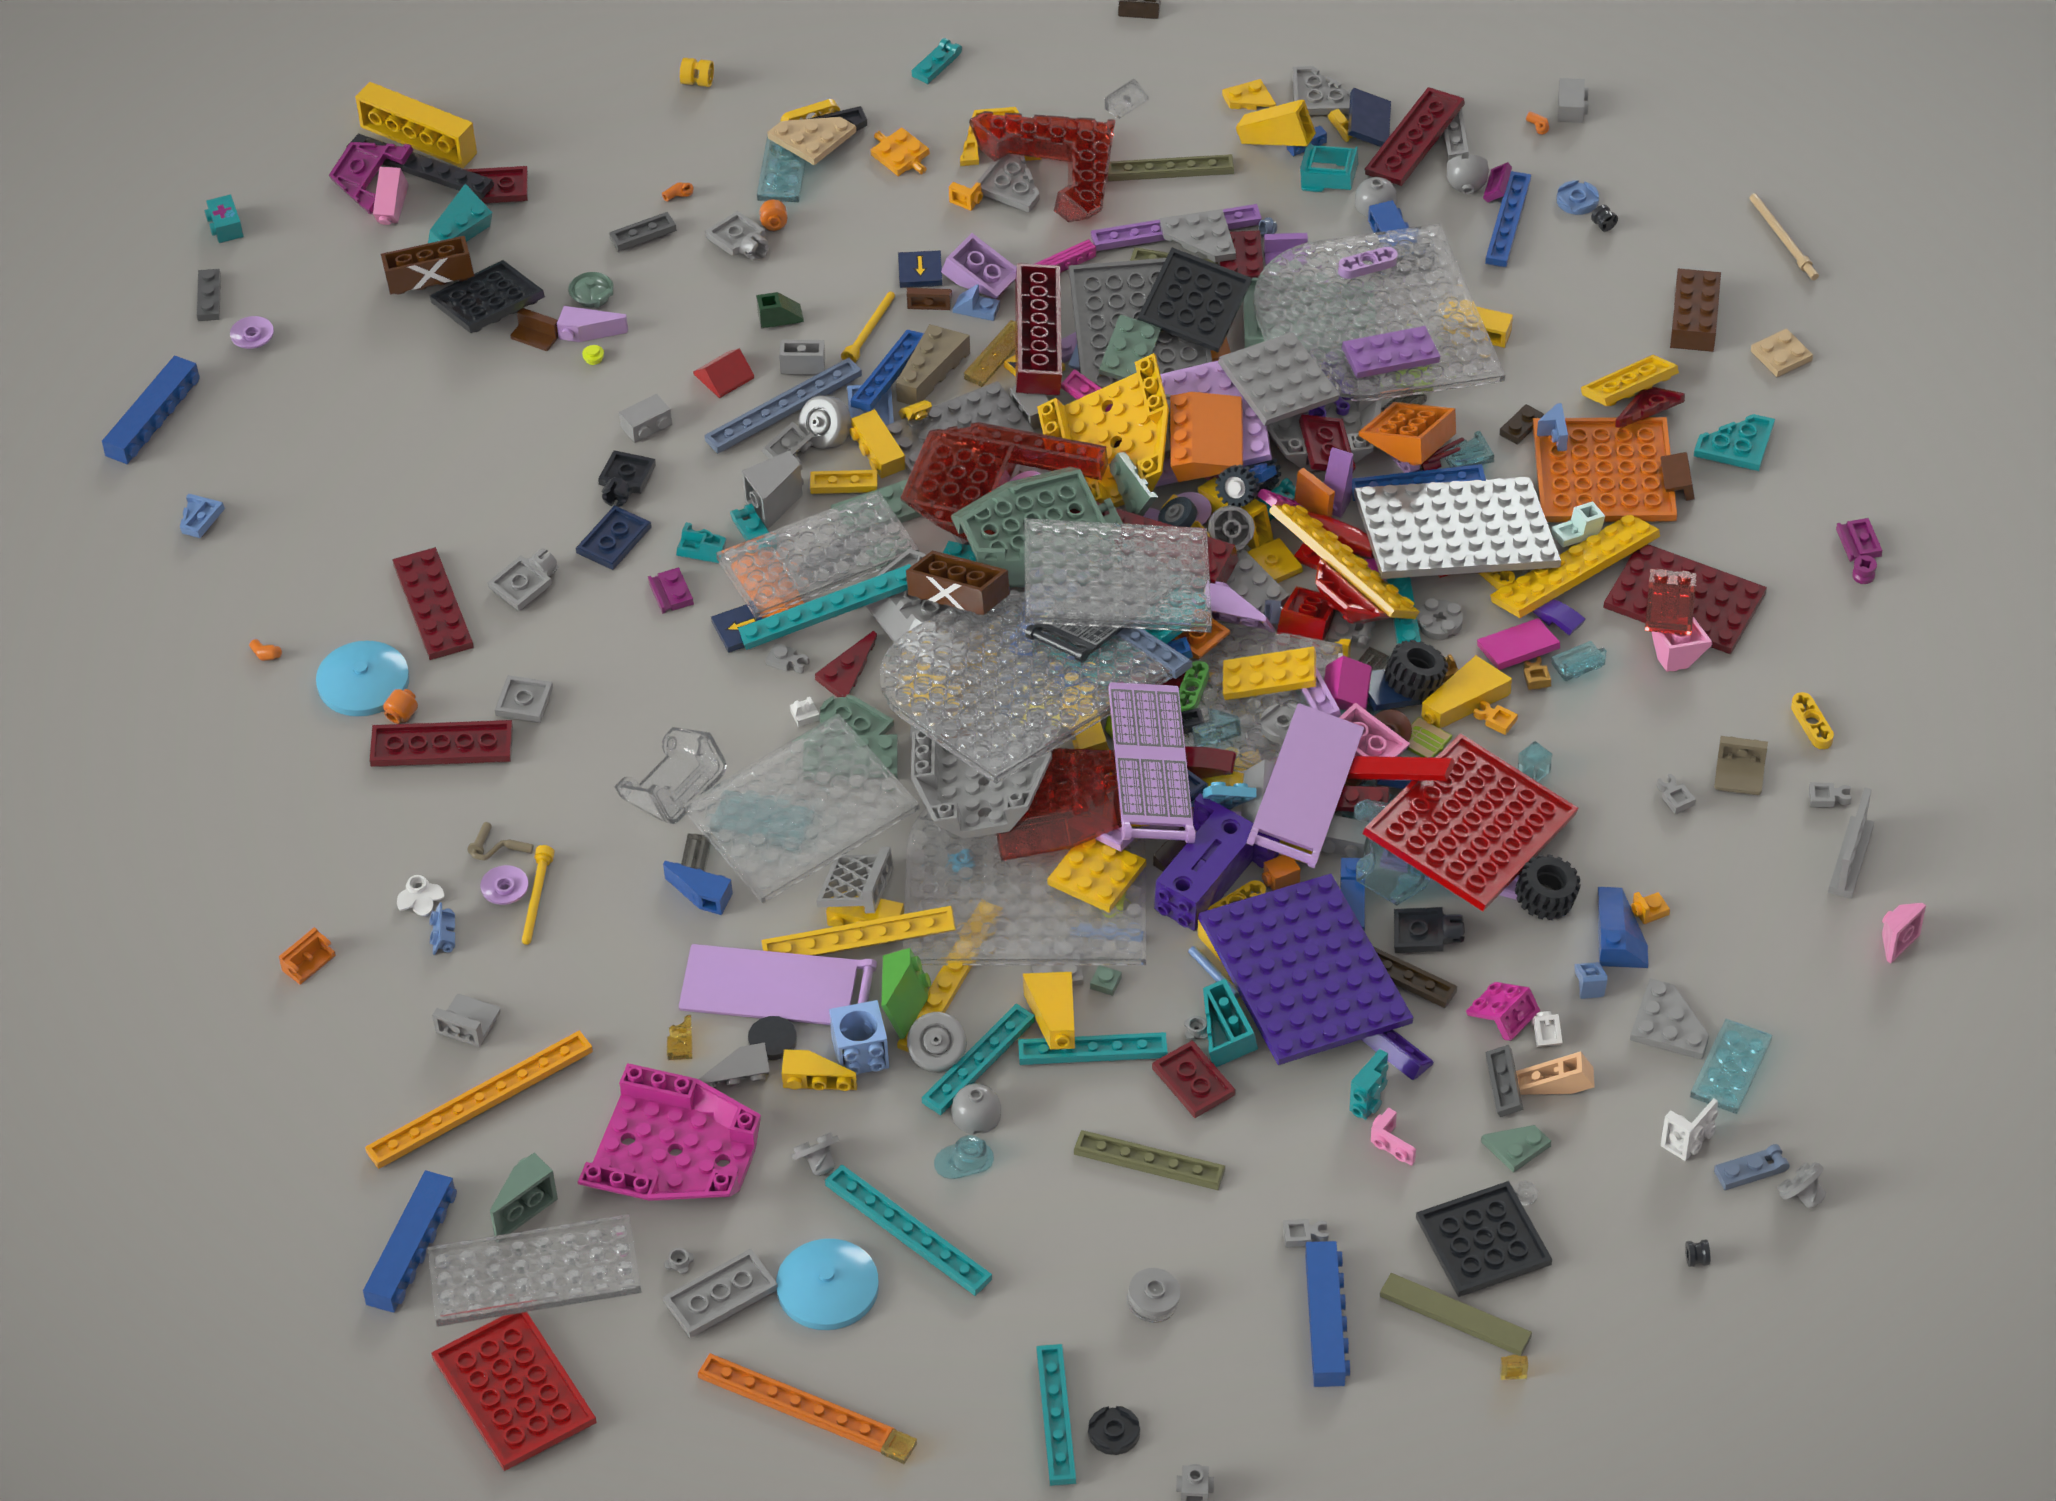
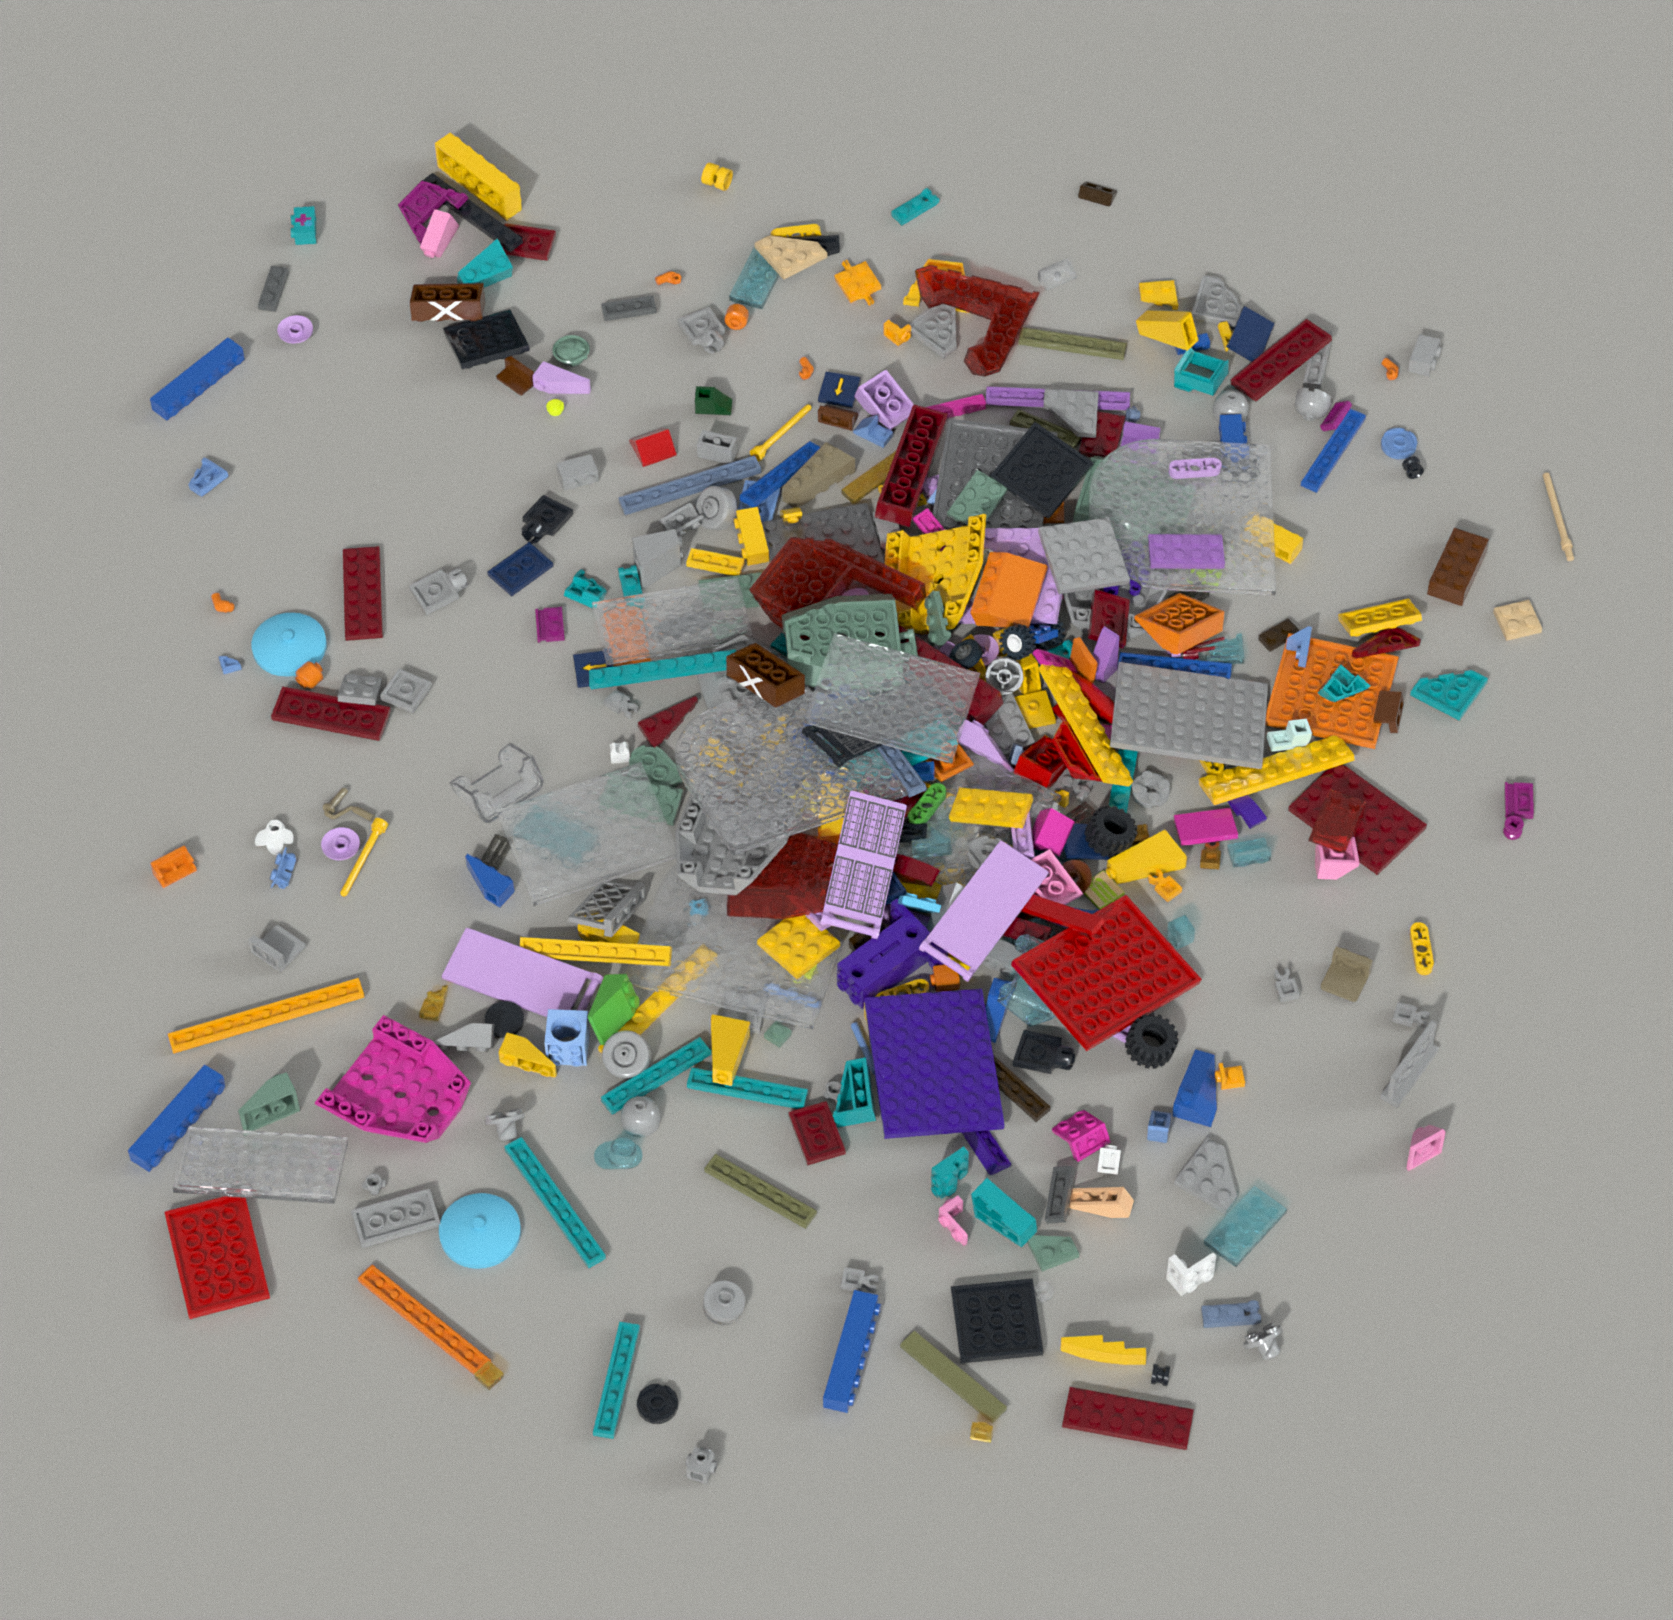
camera: 15 degrees right, 5 degrees up
(297, 717) = (229, 665): none -> medium blue tile
(468, 708) = (359, 689): none -> light grey plate
(875, 253) = (807, 369): none -> orange arm
(1448, 1116) = (1002, 1213): none -> teal wedge
(1612, 1242) = (1107, 1352): none -> yellow slope
(1616, 459) = (1342, 685): none -> teal slope
(1677, 1311) = (1128, 1418): none -> dark red plate

